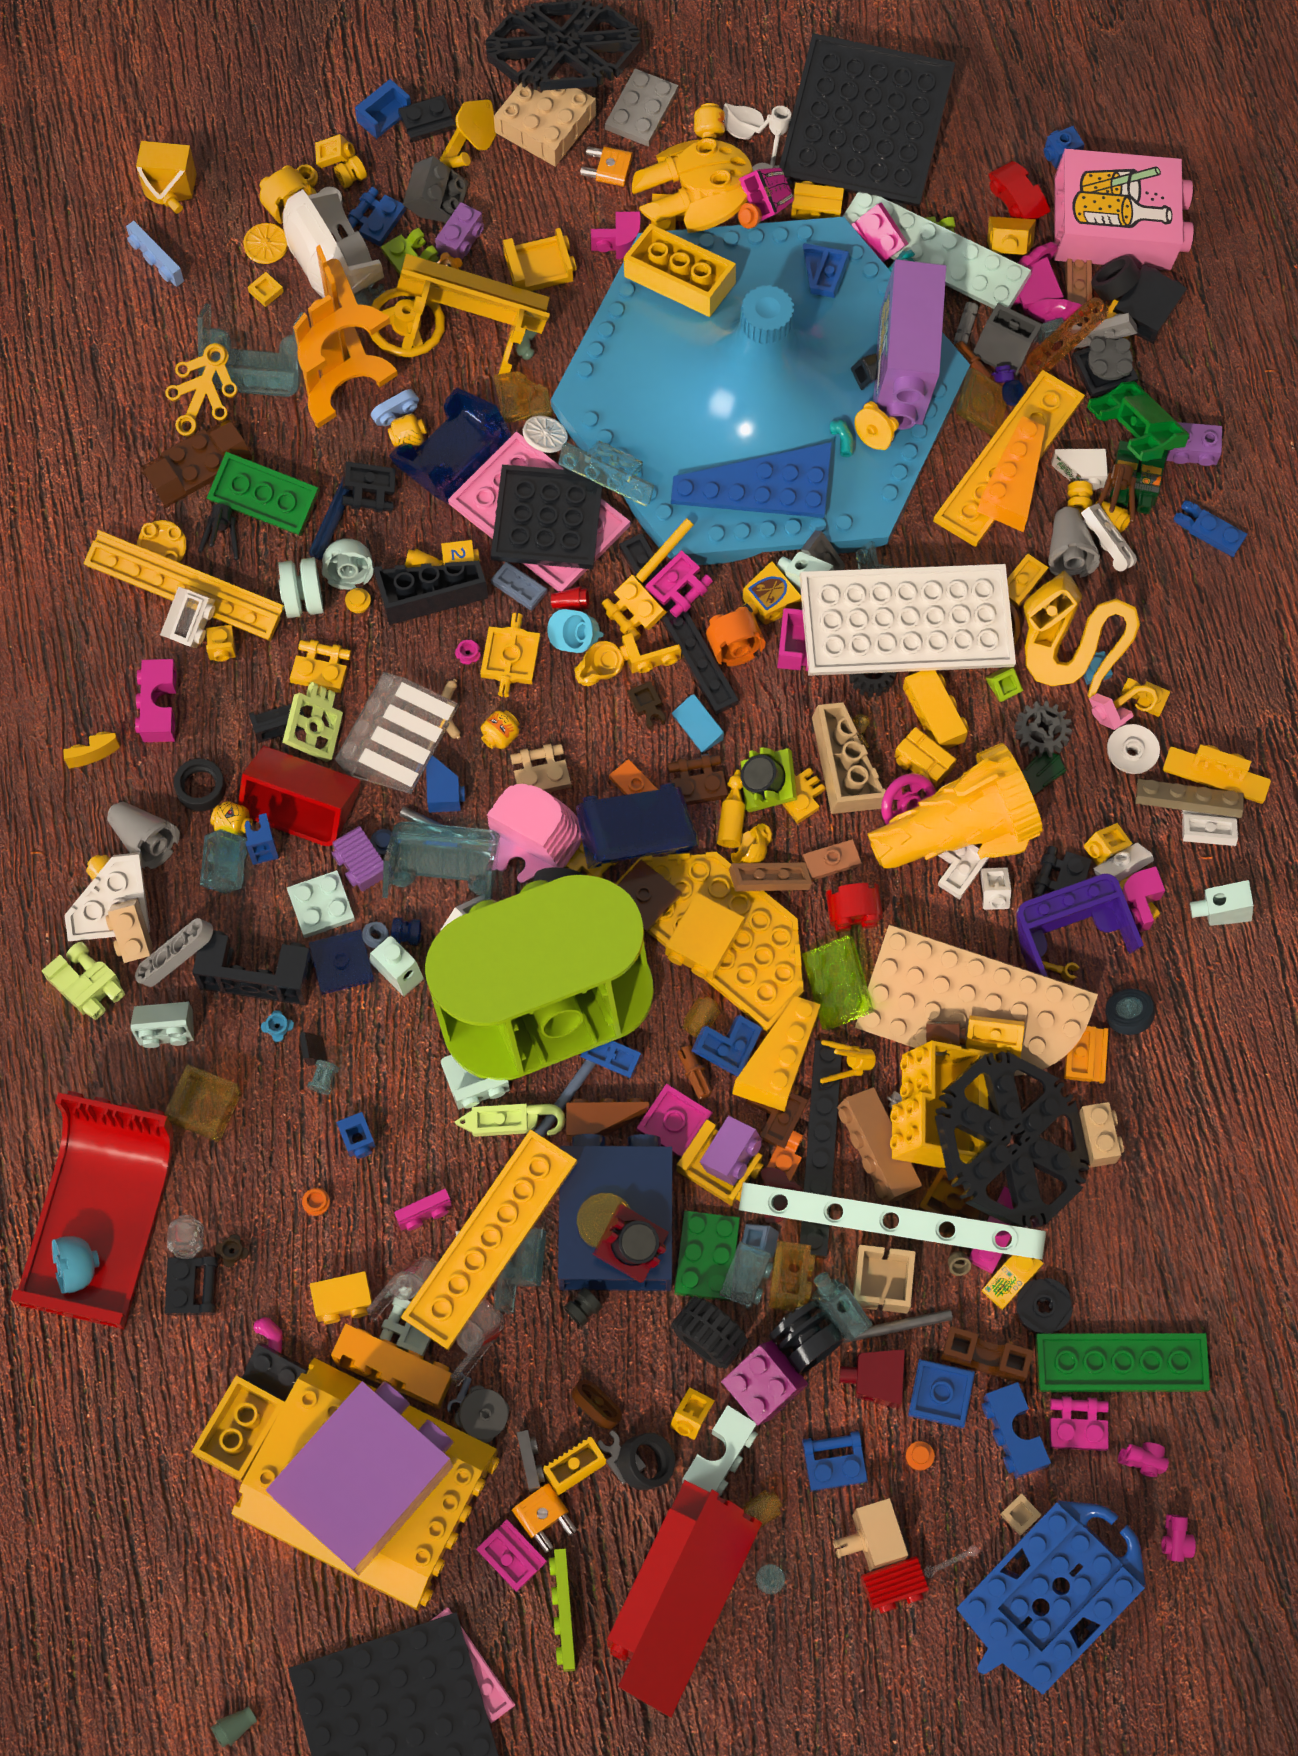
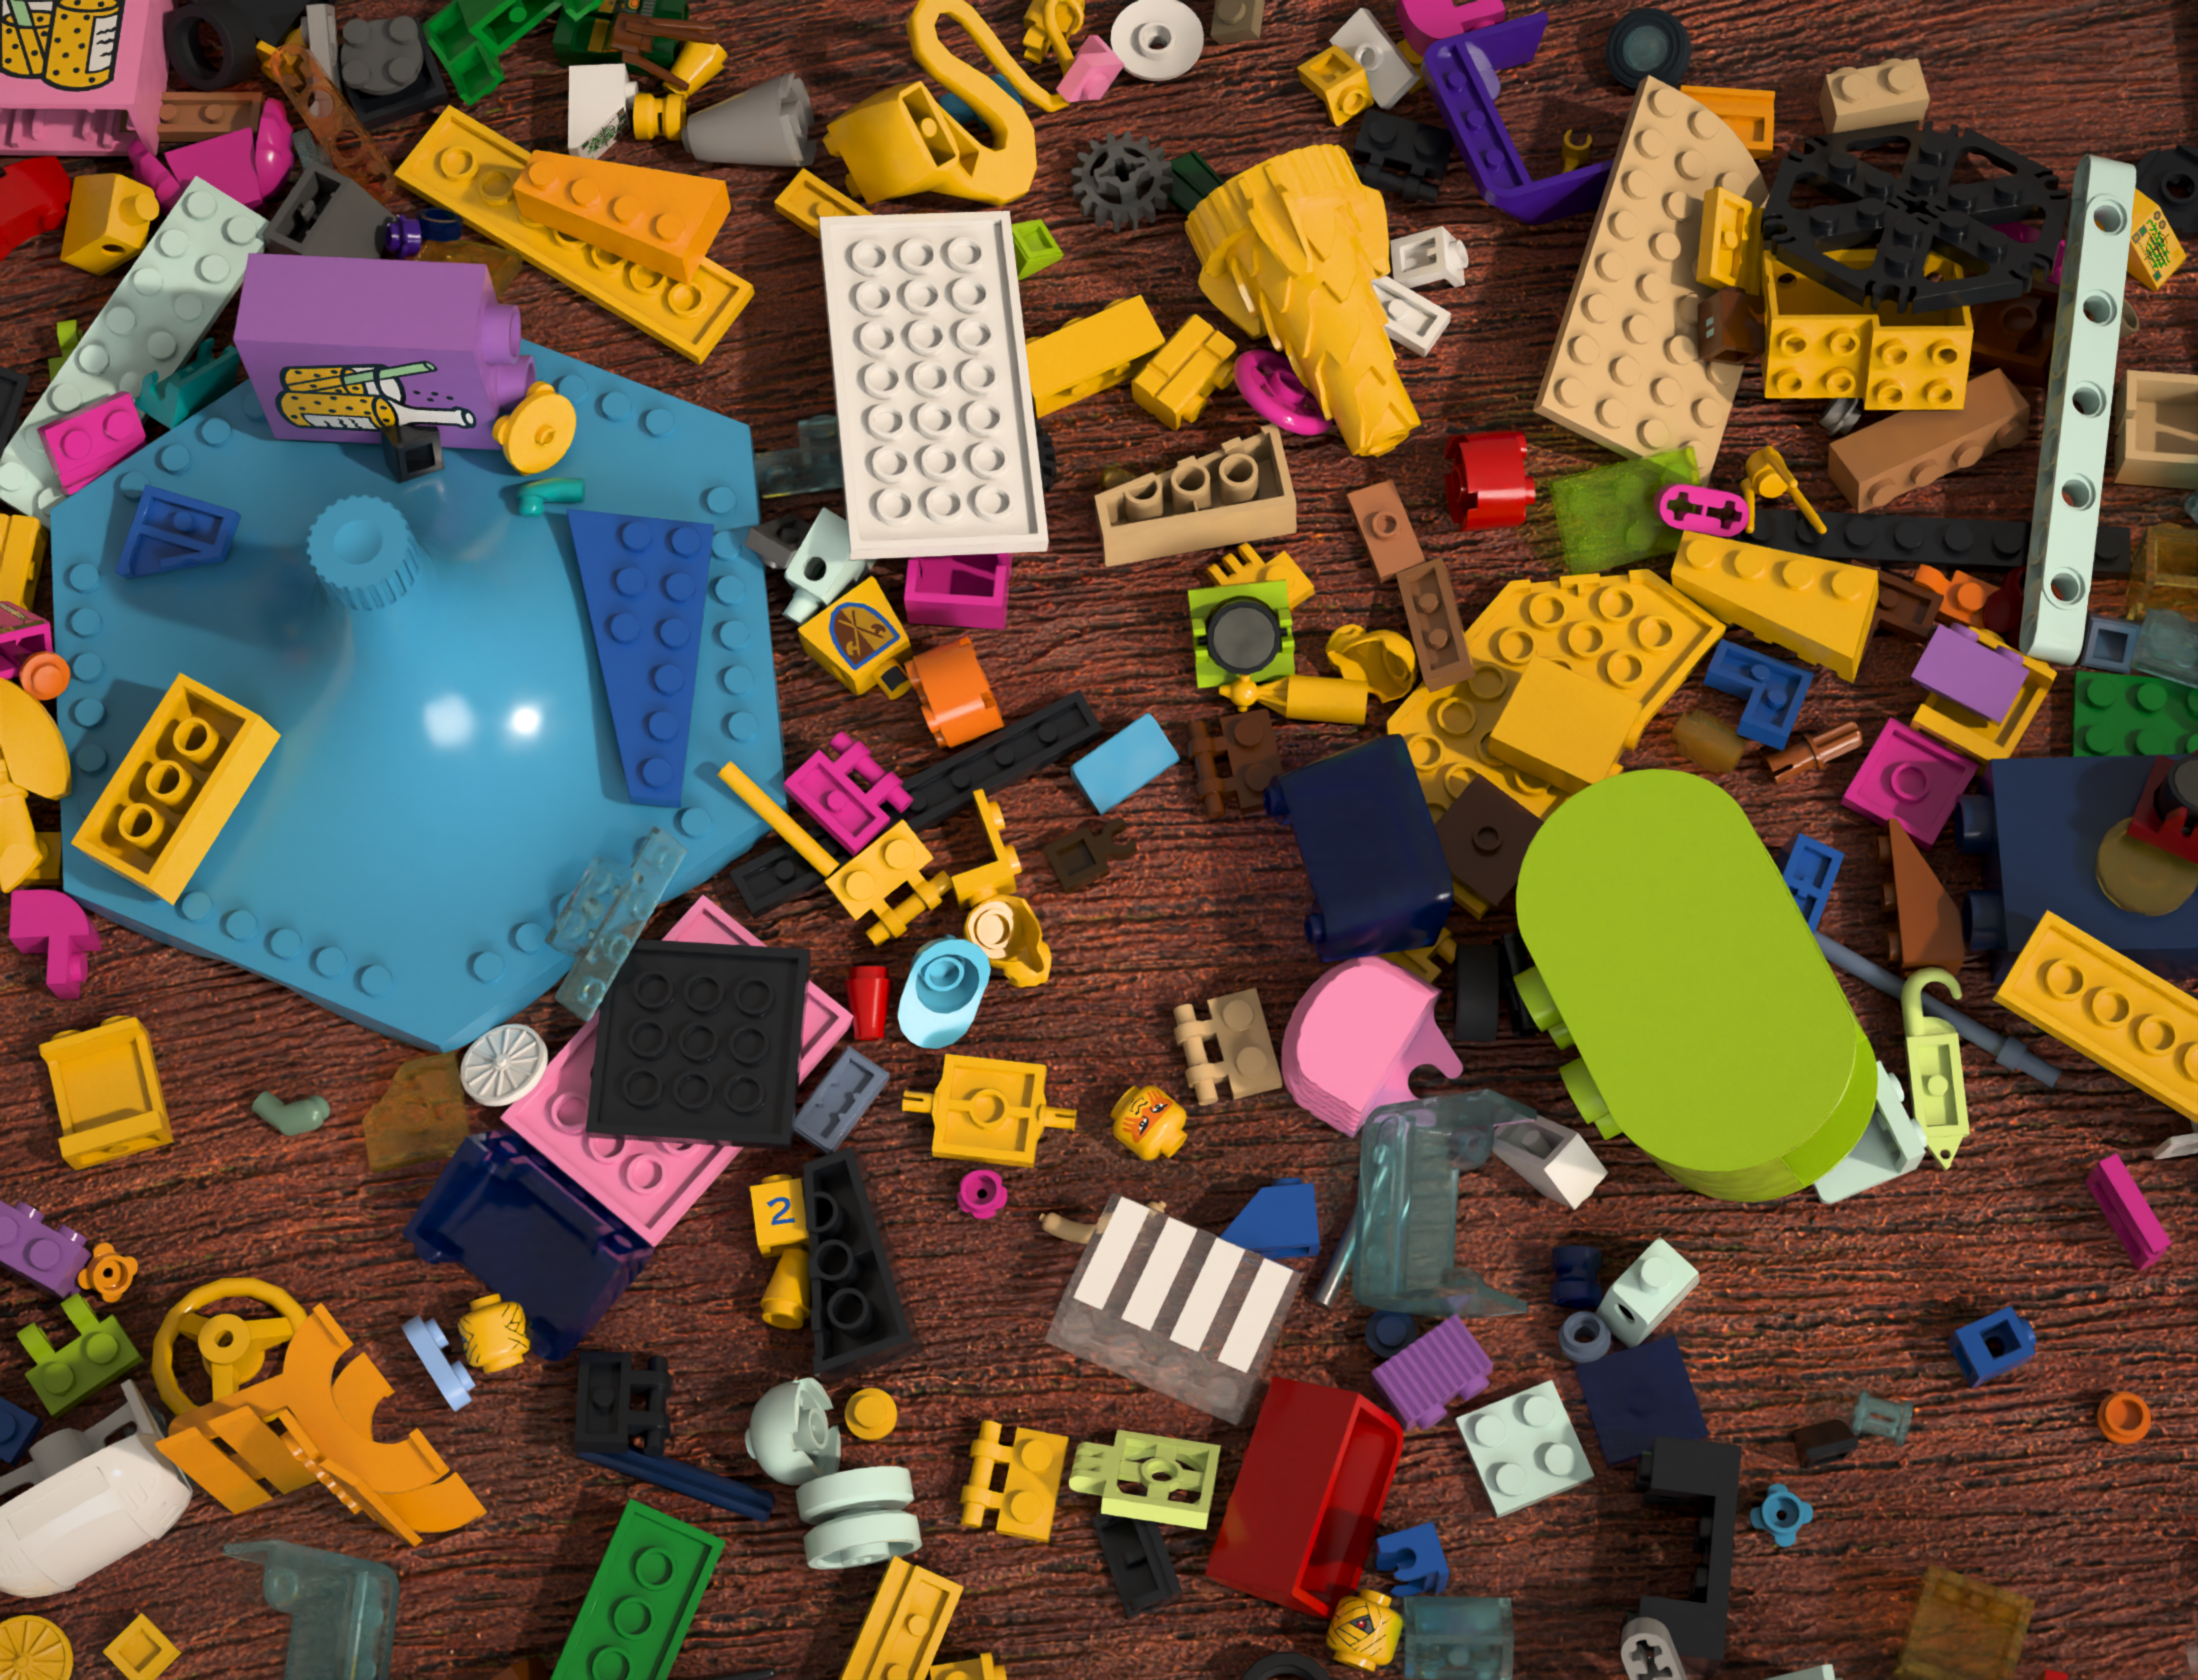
camera: 85 degrees left, 0 degrees up
(475, 295) = (207, 1261): yellow piece -> none
(630, 779) = (1253, 873): orange plate -> none
(833, 1014) = (1702, 498): none -> dark pink beam
(1109, 537) = (746, 66): white plate -> none

